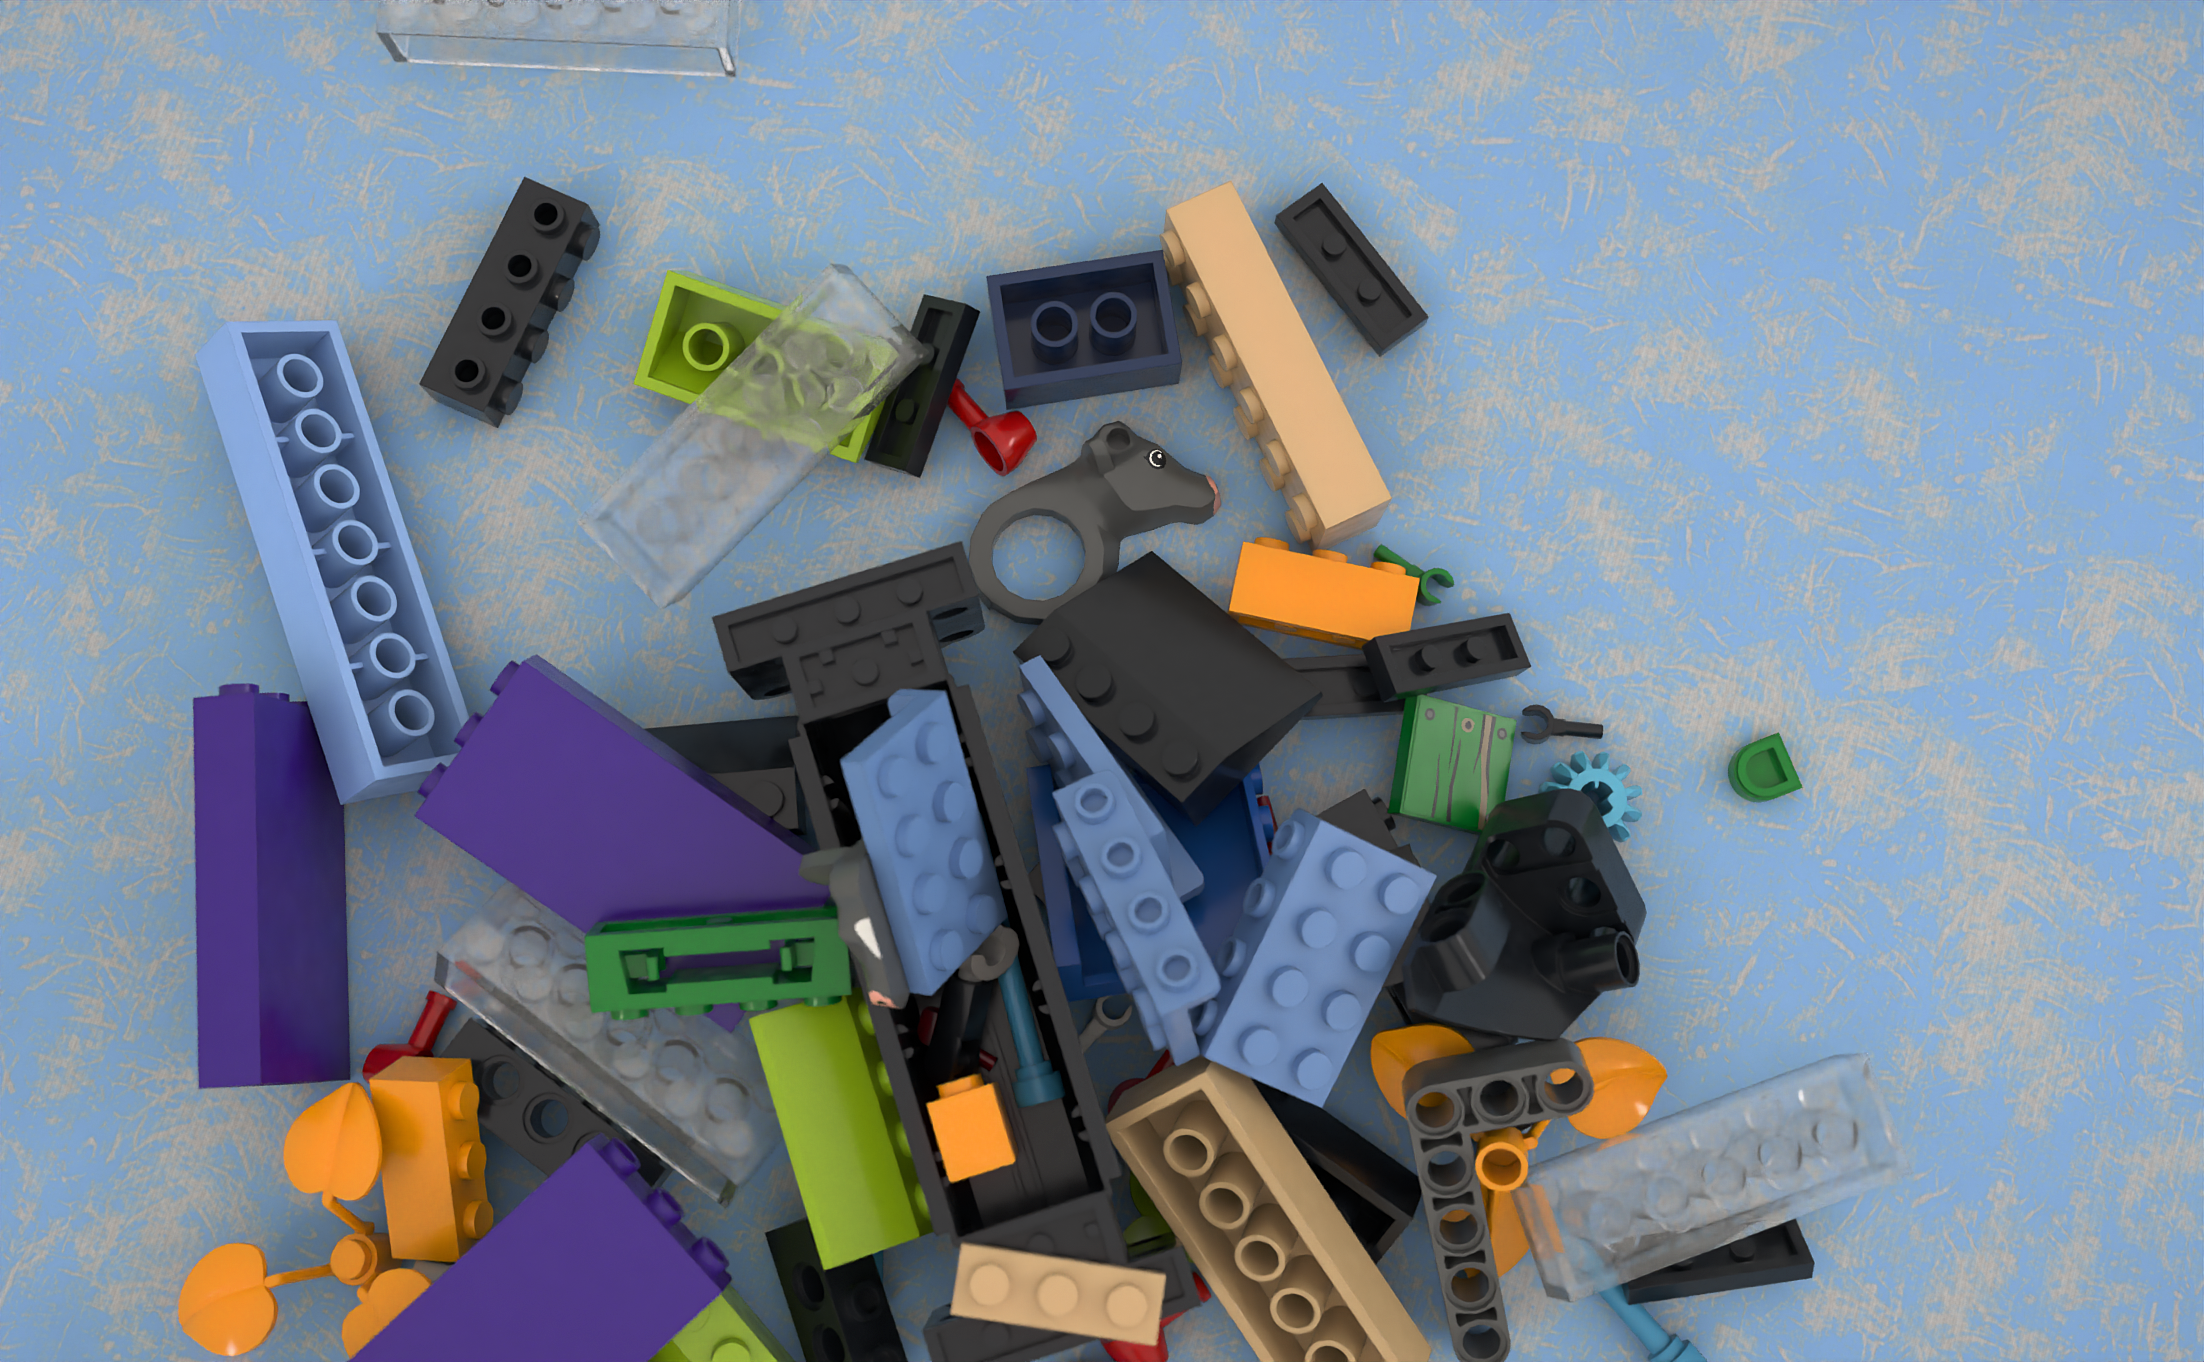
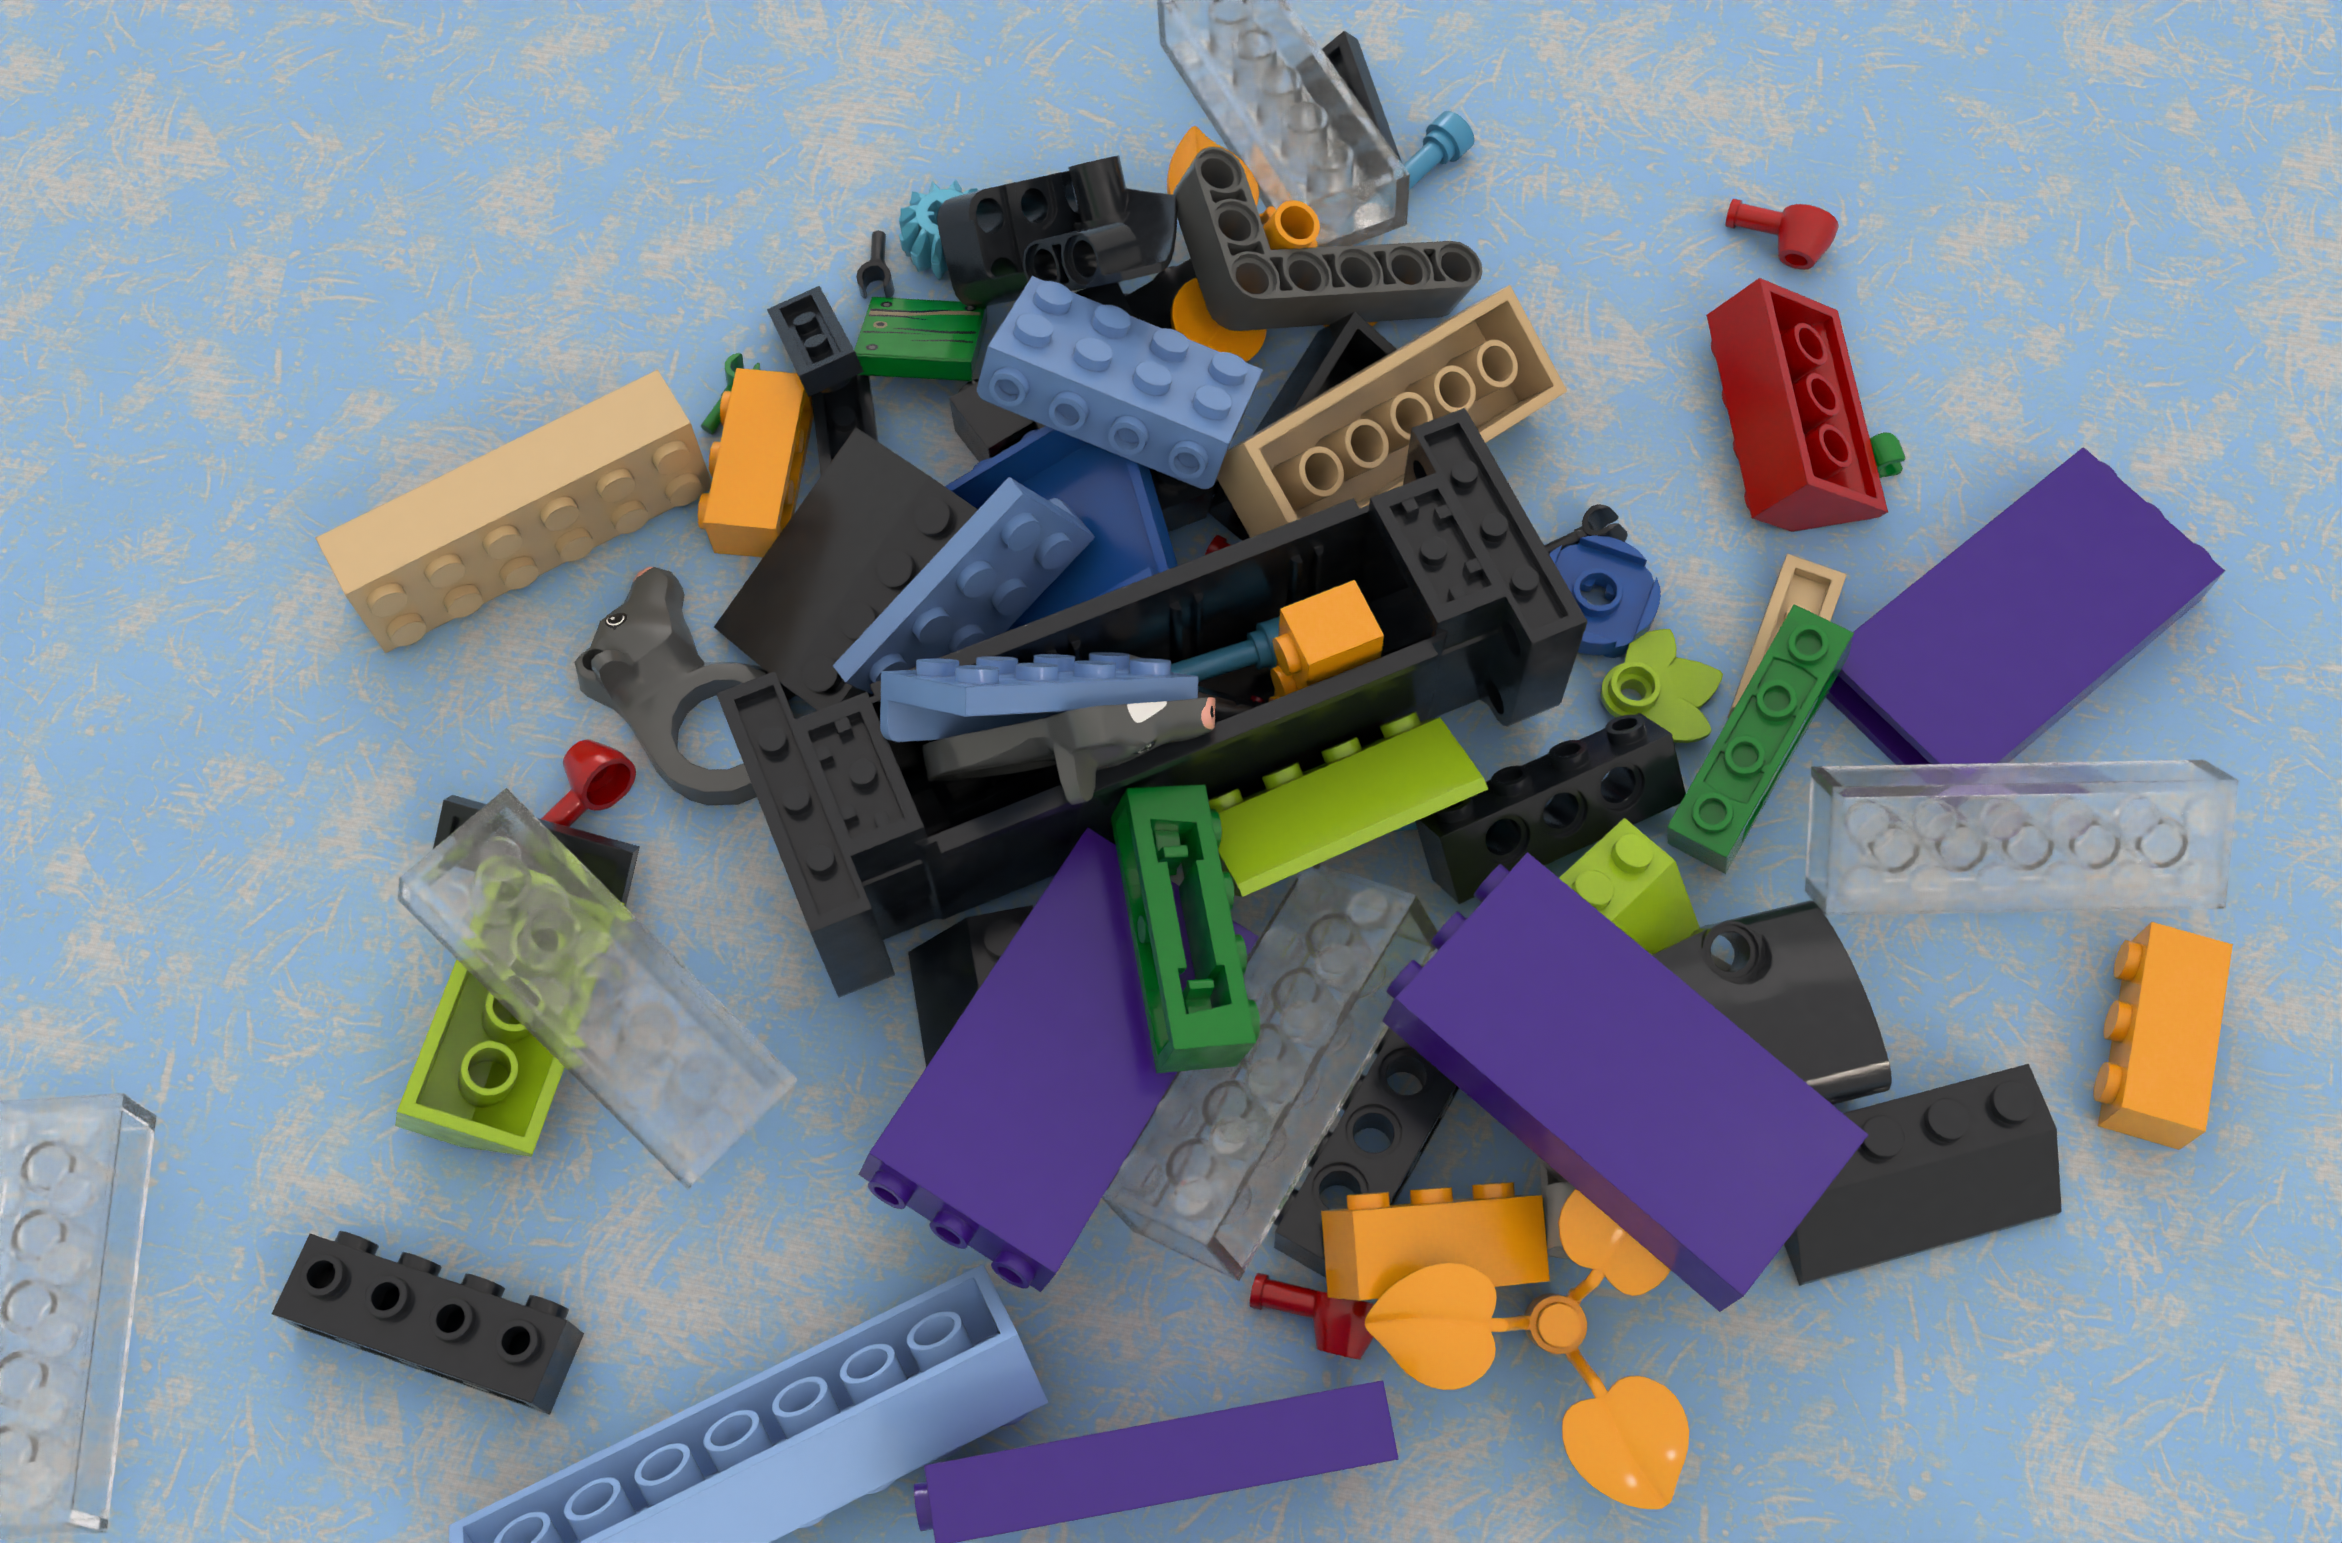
camera: 90 degrees left, 15 degrees down
(1058, 1293) = (1475, 523): tan plate -> none
(1084, 329) = (473, 696): dark blue brick -> none
(1135, 910) = (1094, 504): medium blue bracket -> none
(1351, 269) = (427, 451): black plate -> none
(1763, 770) = (906, 109): green tile -> none

